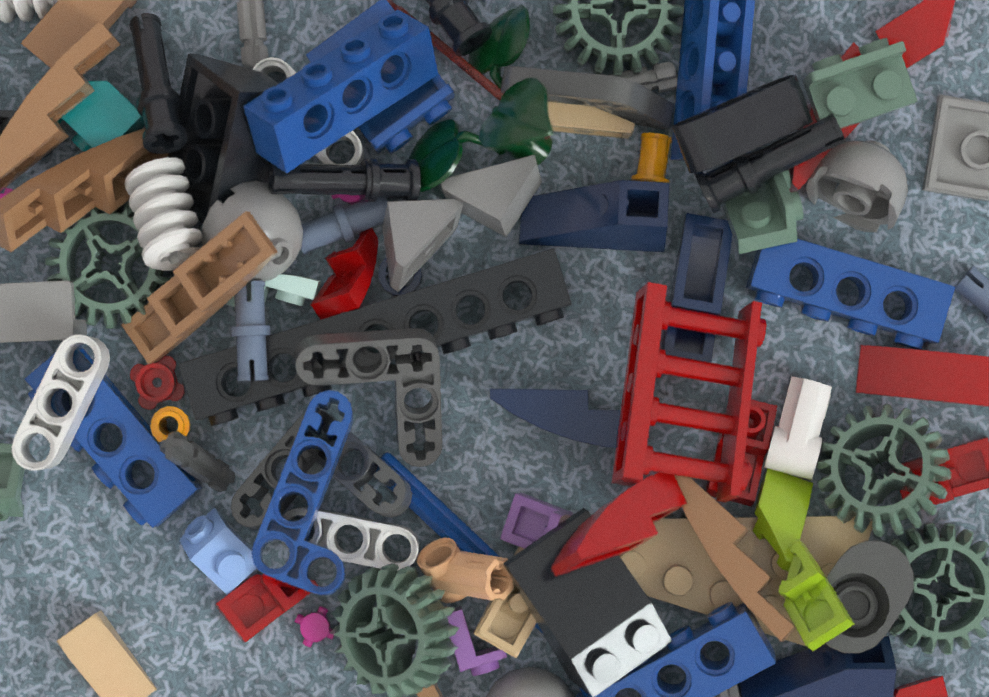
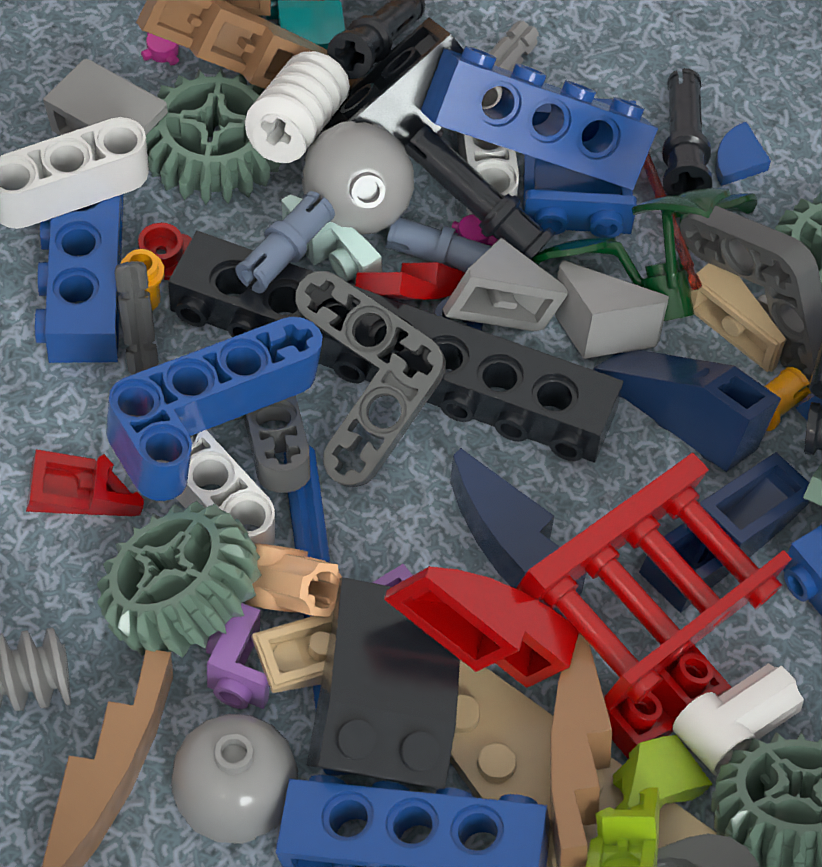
camera: 40 degrees right, 30 degrees down
(200, 287) = (285, 171): medium nougat slope -> none
(218, 551) = (80, 414): light blue bracket -> none
(314, 626) = (102, 542): dark pink piece -> none

